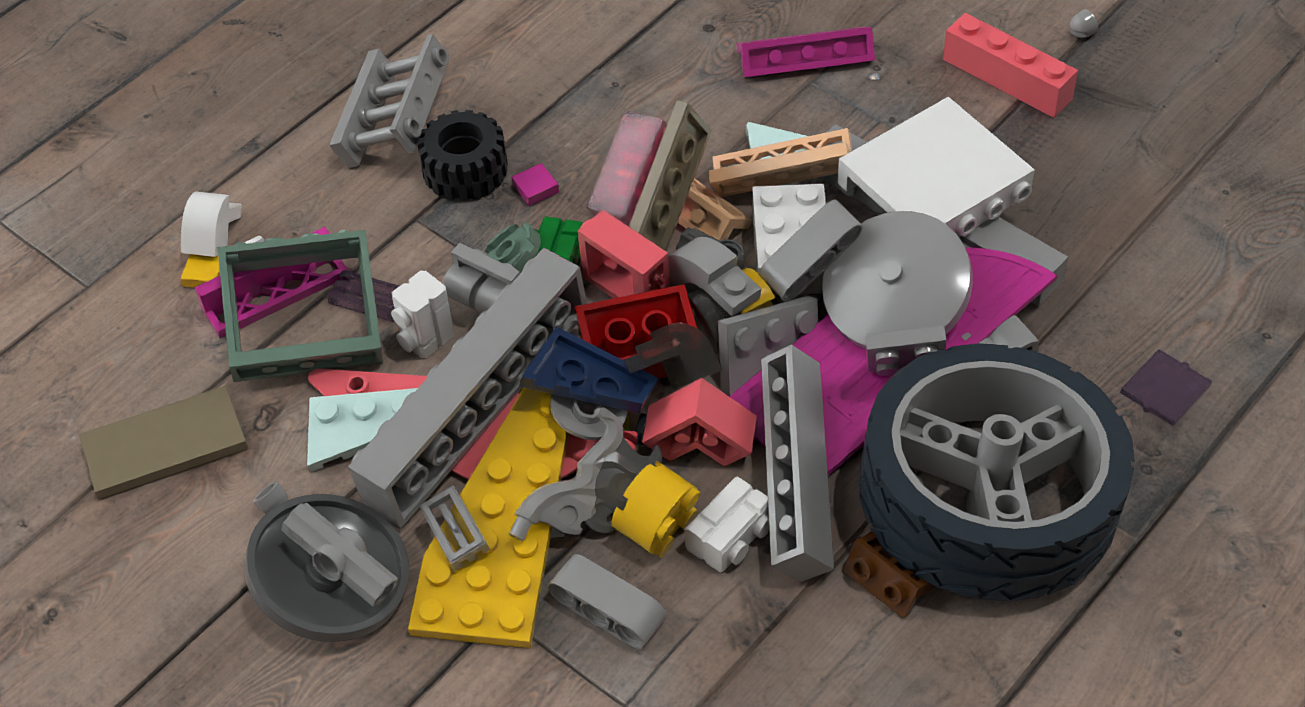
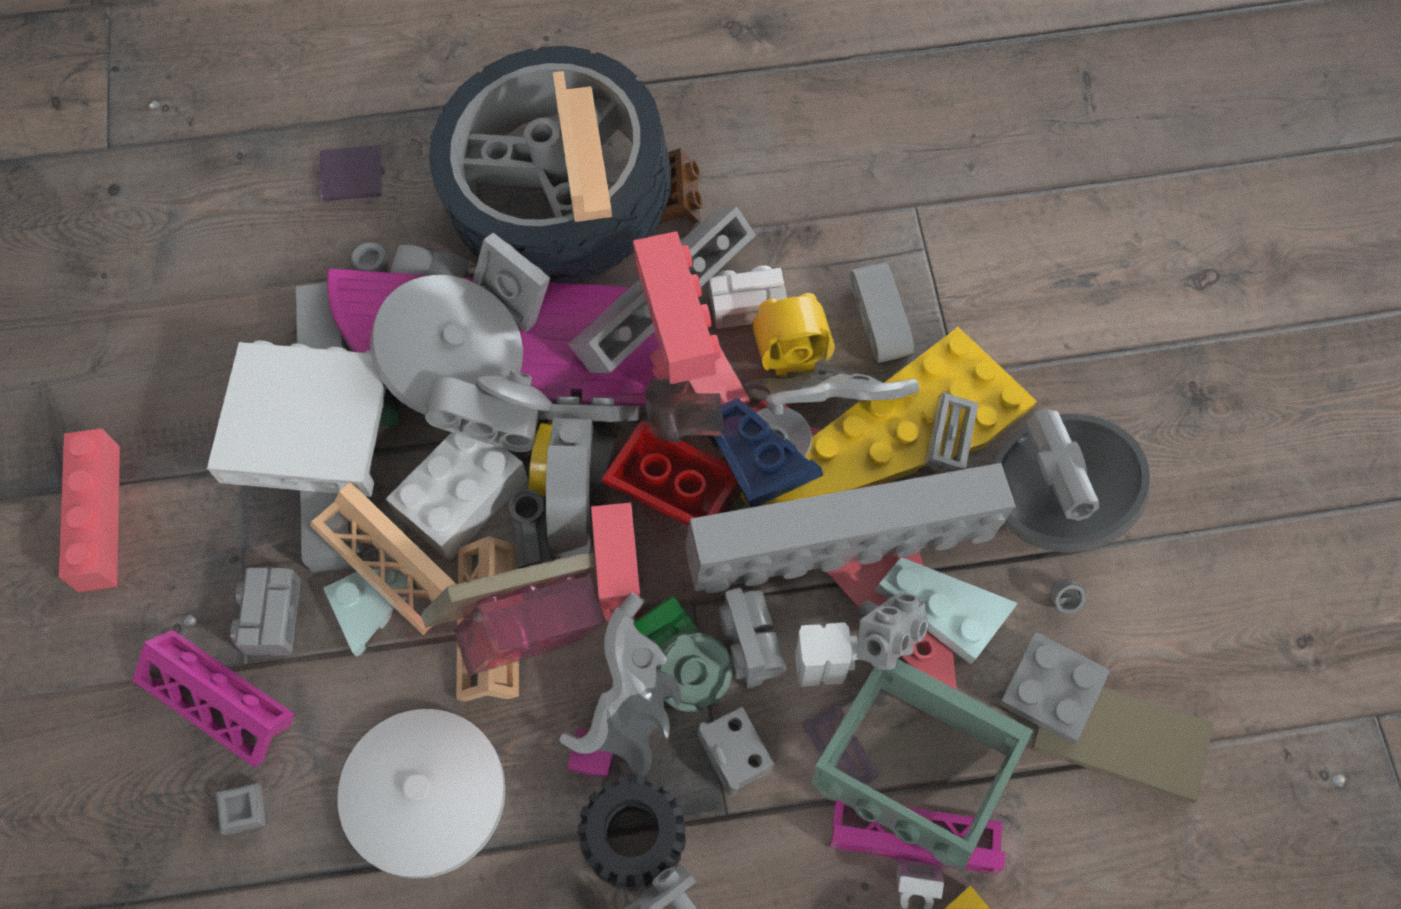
camera: 140 degrees left, 15 degrees up
(235, 424) = (1054, 688): none -> light grey plate
(383, 352) = (891, 629): none -> light grey brick
(438, 241) = (732, 750): none -> light grey piece
(534, 203) = (635, 700): none -> piece
(606, 83) = (421, 793): none -> white dish
(719, 24) = (240, 809): none -> light grey tile
(750, 401) = (675, 307): none -> coral brick
(794, 267) = (516, 390): none -> light grey dish
(826, 98) = (266, 612): none -> light grey brick
(954, 438) = (582, 151): none -> light nougat fence
(1058, 337) = (370, 258): none -> light grey tile

